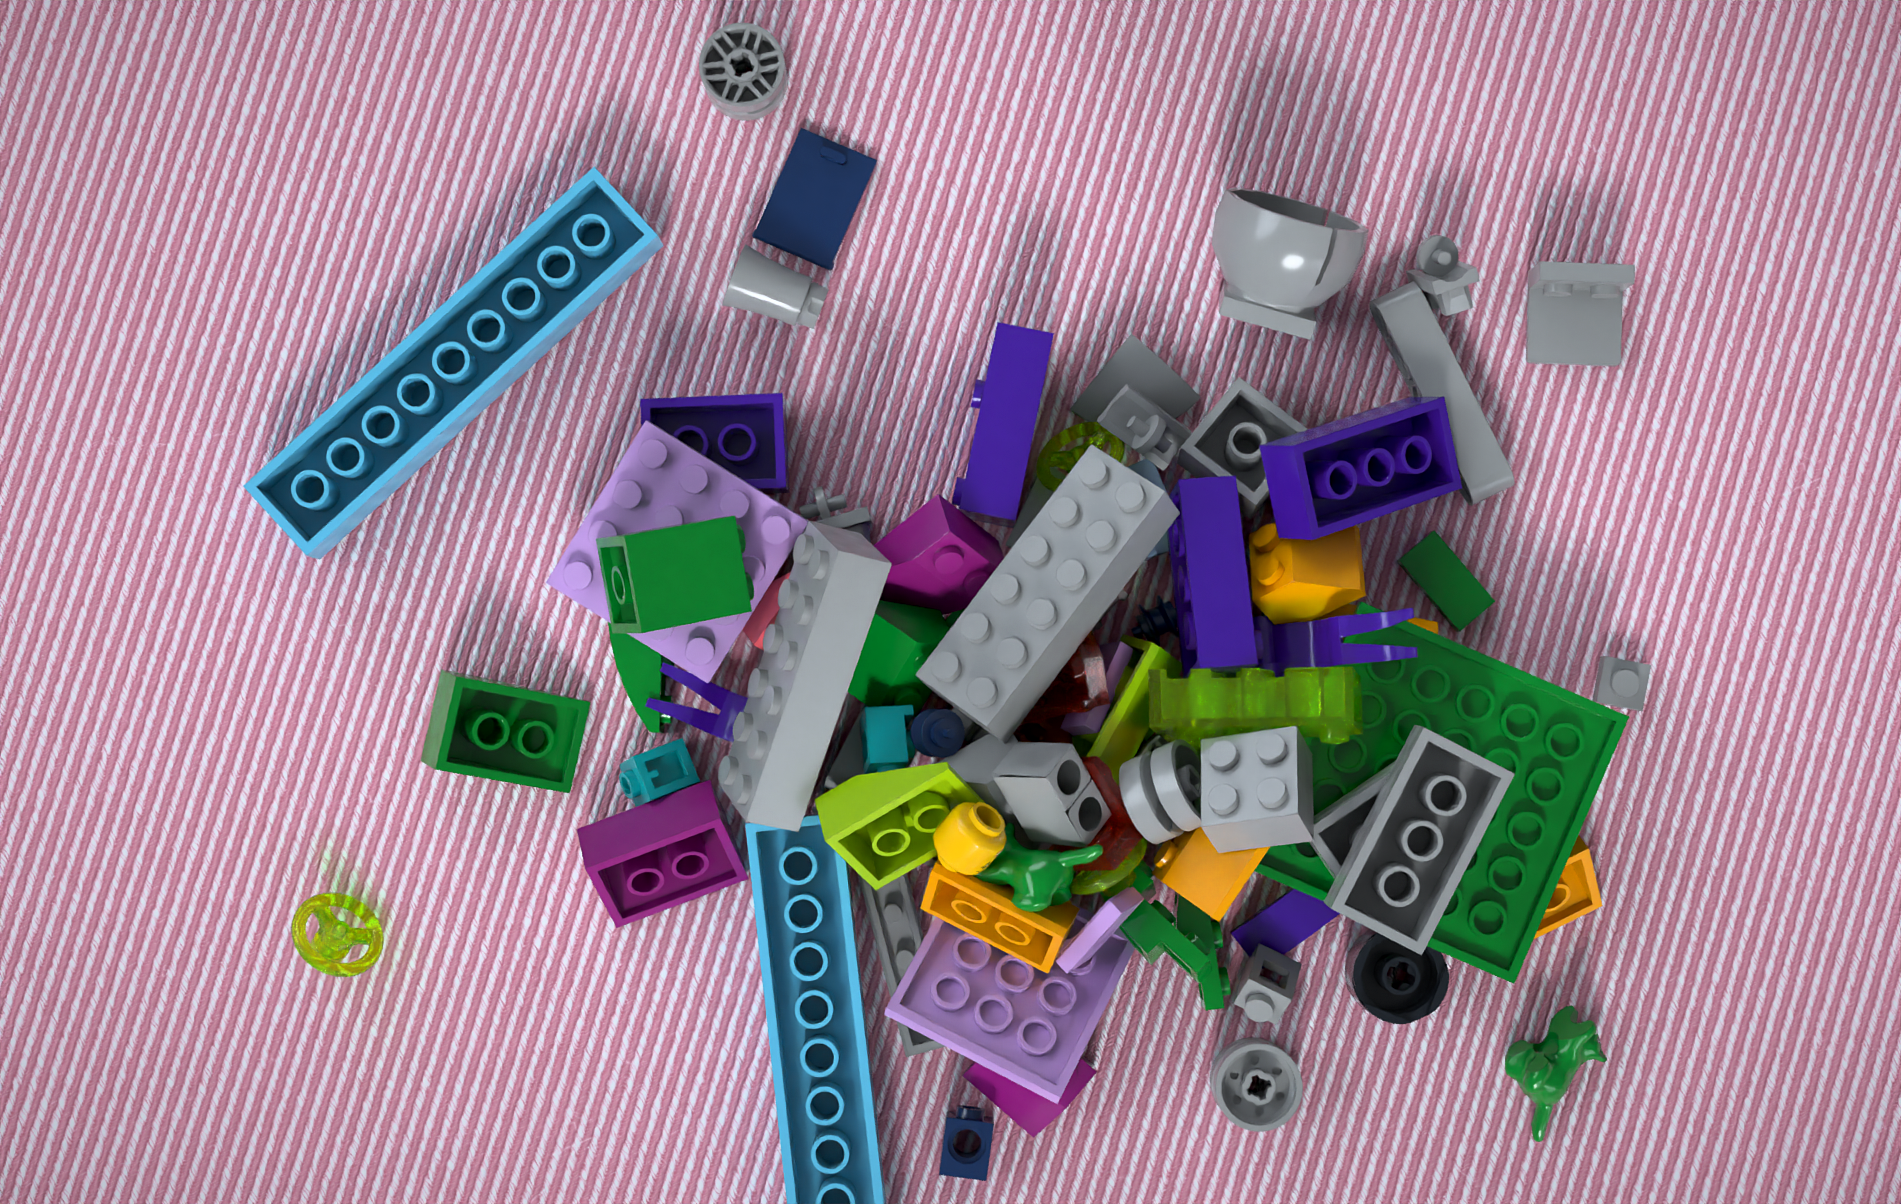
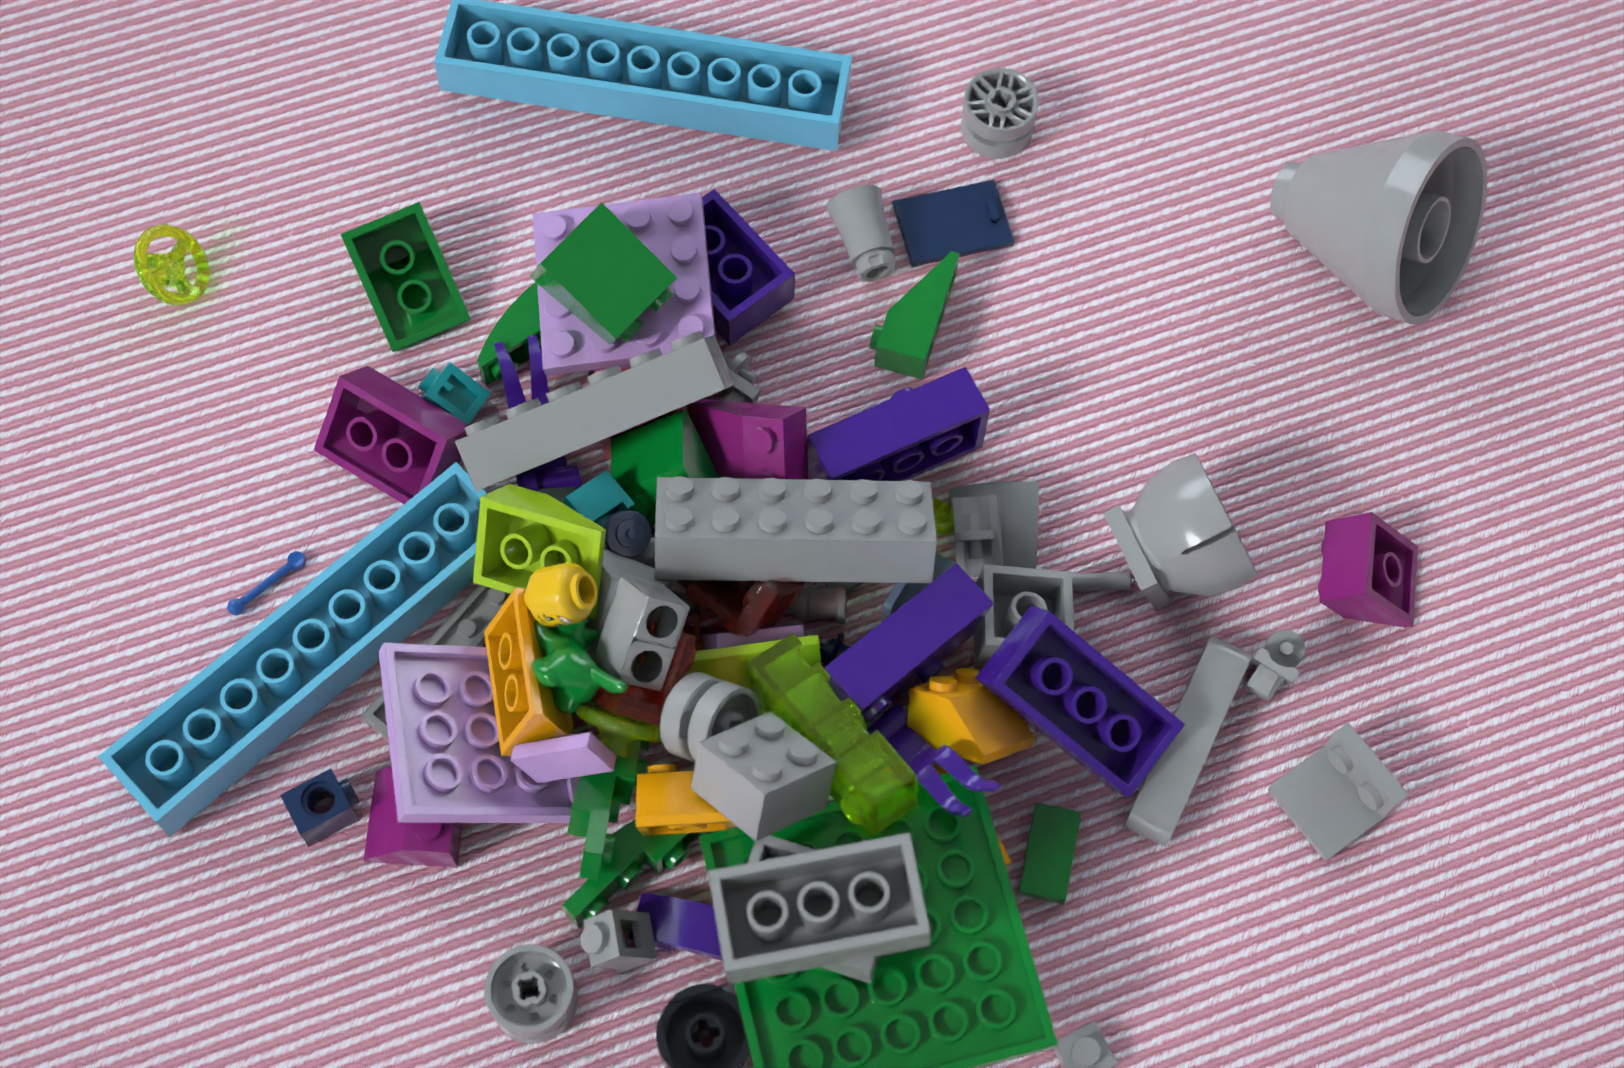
camera: 50 degrees right, 20 degrees down
(715, 1014) = (295, 561): none -> blue hinge
(900, 323) = (914, 322): none -> green slope
(1236, 367) = (1101, 581): none -> light grey piece
(1415, 121) = (1368, 571): none -> magenta slope

